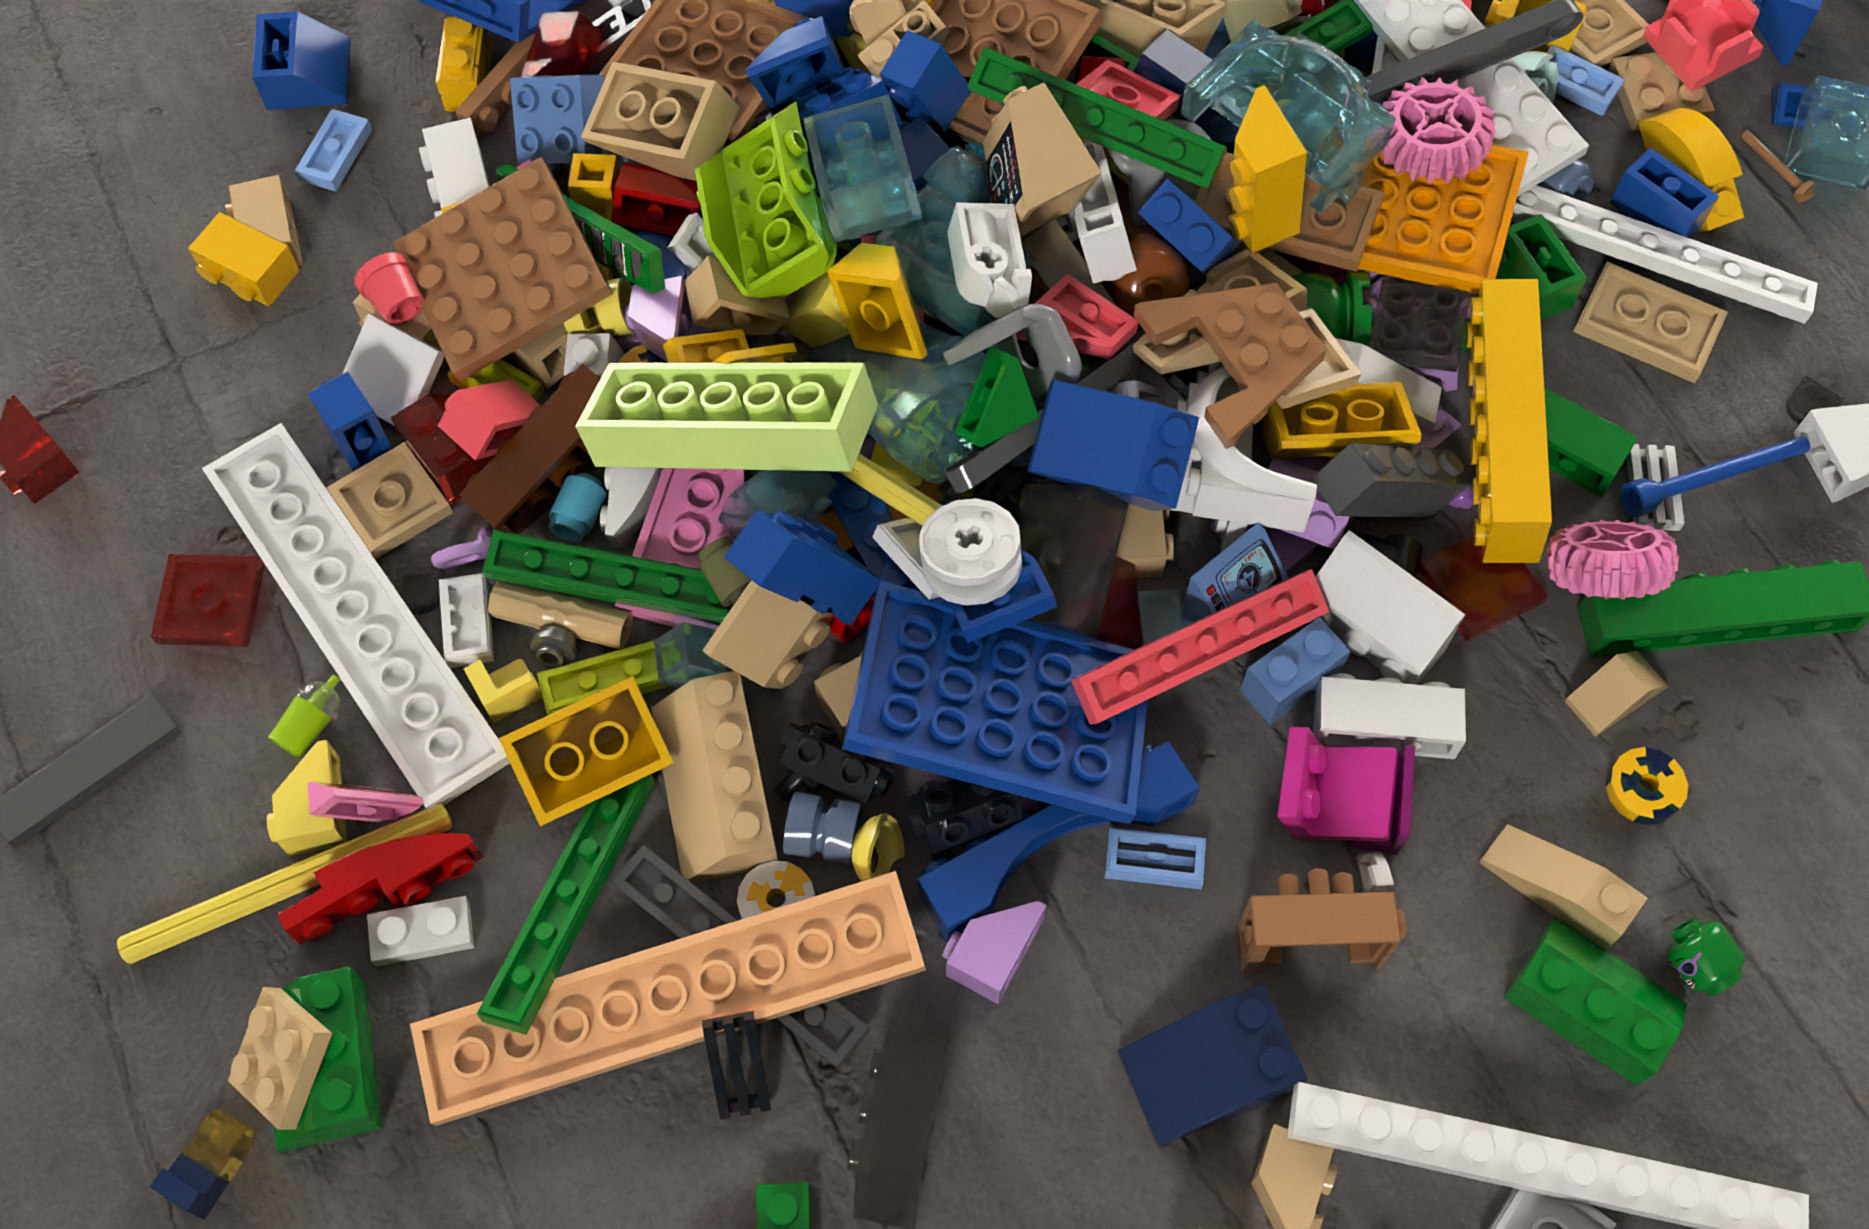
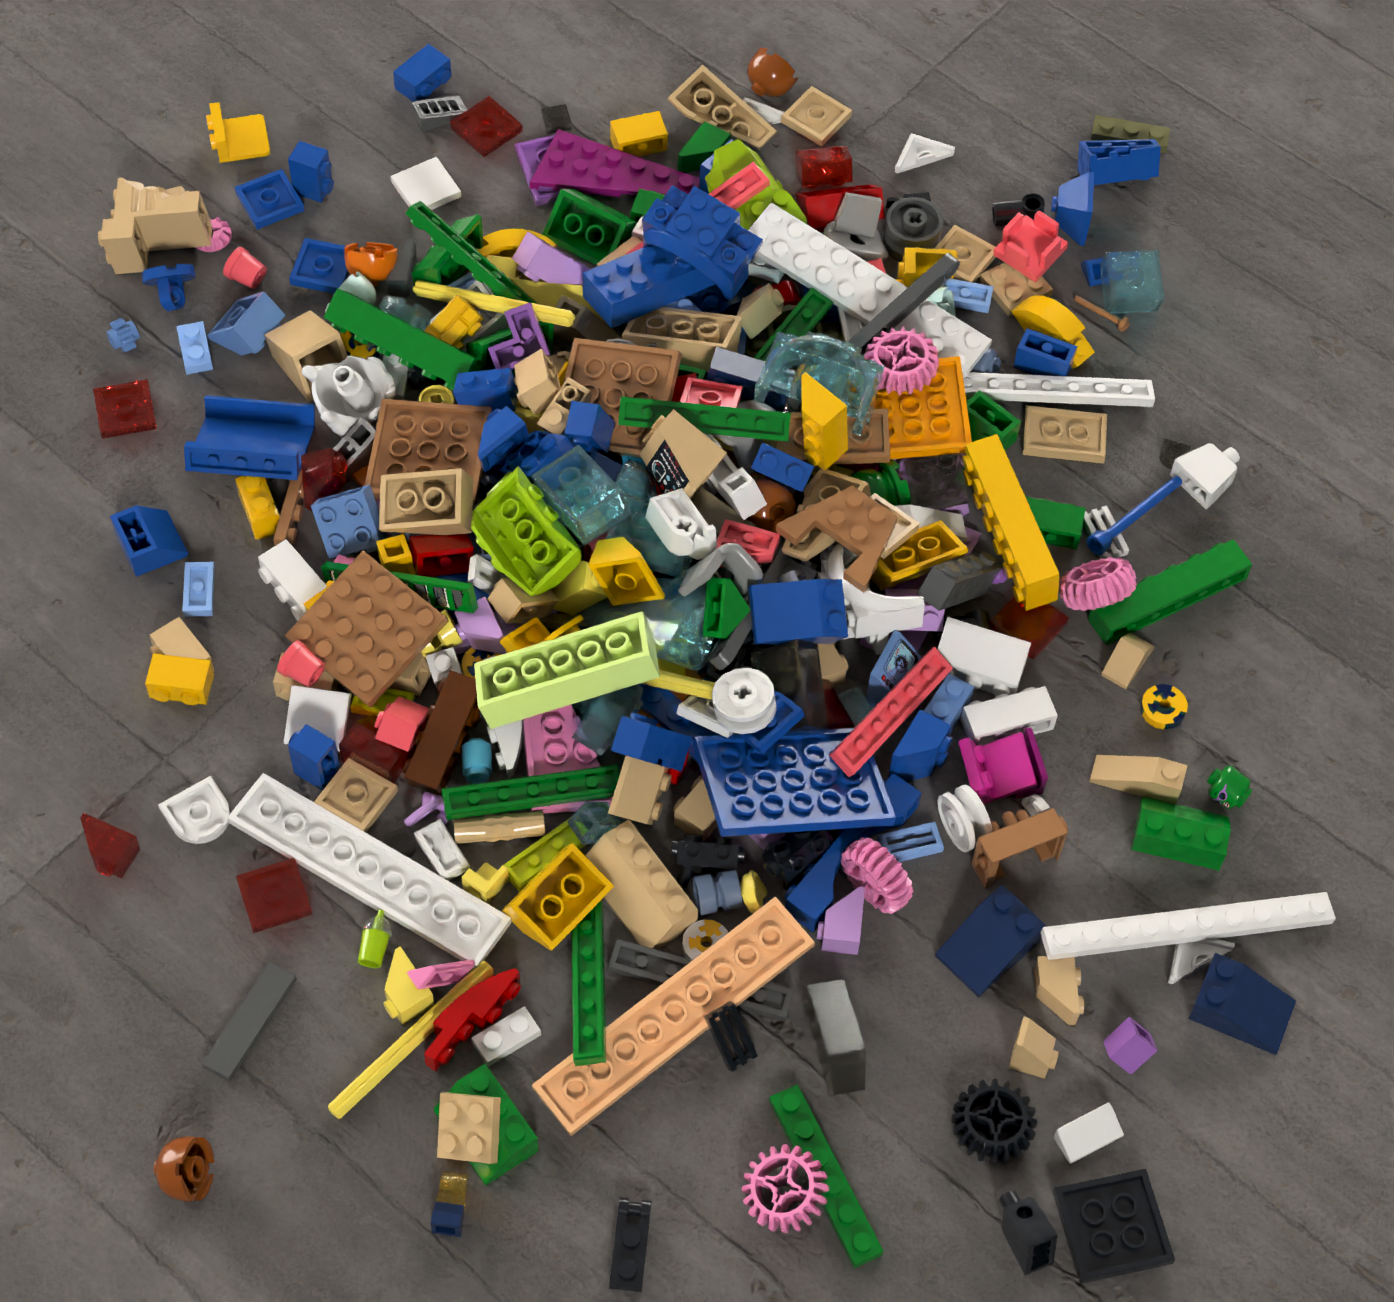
camera: 25 degrees left, 5 degrees down
(175, 446) = (197, 812): none -> white tile
(554, 646) = (504, 847): flat silver plate -> none
(722, 576) = (599, 764): olive brick -> none
(1074, 893) = (879, 872): none -> bright pink gear
(1226, 718) = (921, 748): none -> blue slope
(1250, 851) = (964, 817): none -> white wheel

